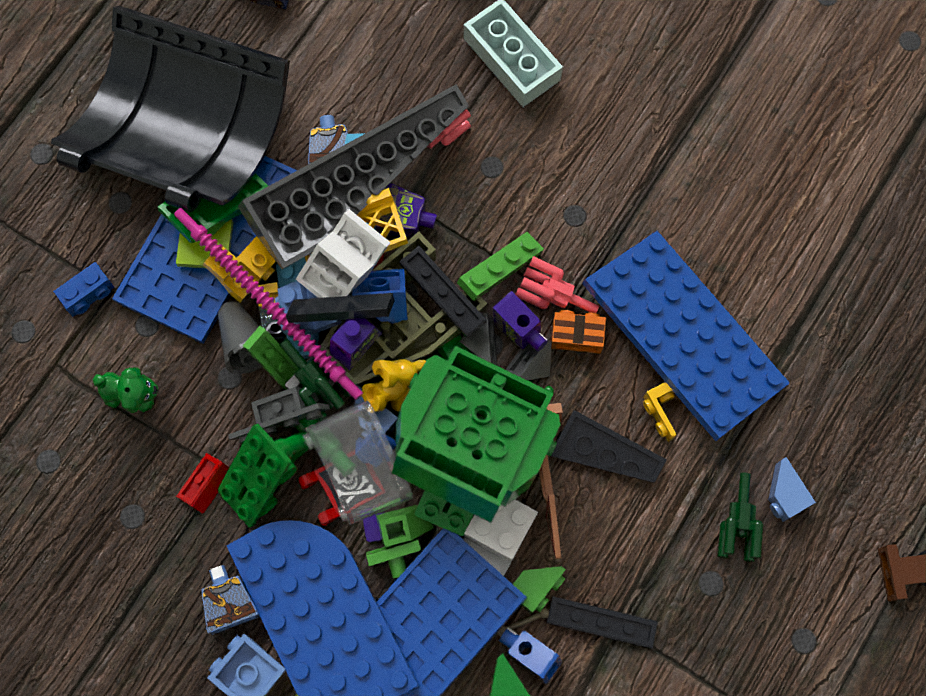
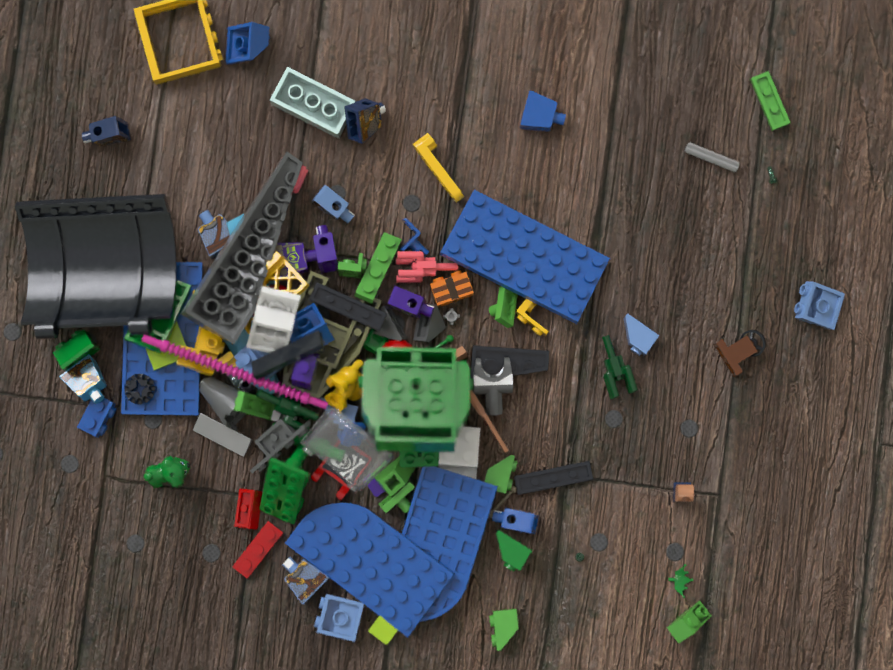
camera: 25 degrees left, 10 degrees up
(92, 240) = (85, 380): none -> torso
(98, 204) = (75, 349): none -> green slope
(154, 287) = (147, 393): none -> black gear
(189, 538) = (257, 549): none -> red plate
(219, 379) = (222, 435): none -> light grey slope
(447, 220) = (325, 250): none -> dark purple torso
(468, 253) = (350, 269): none -> bright green bracket
(476, 162) = (324, 201): none -> medium blue torso
(556, 258) = (413, 243): none -> blue bracket
(562, 93) = (363, 119): none -> dark blue torso
(562, 365) = (451, 316): none -> light grey piece
(577, 470) = (493, 385): none -> dark grey connector
(618, 158) = (424, 147): none -> yellow beam
(635, 381) = (505, 308): none -> bright green tile
(775, 179) = (540, 113): none -> blue torso

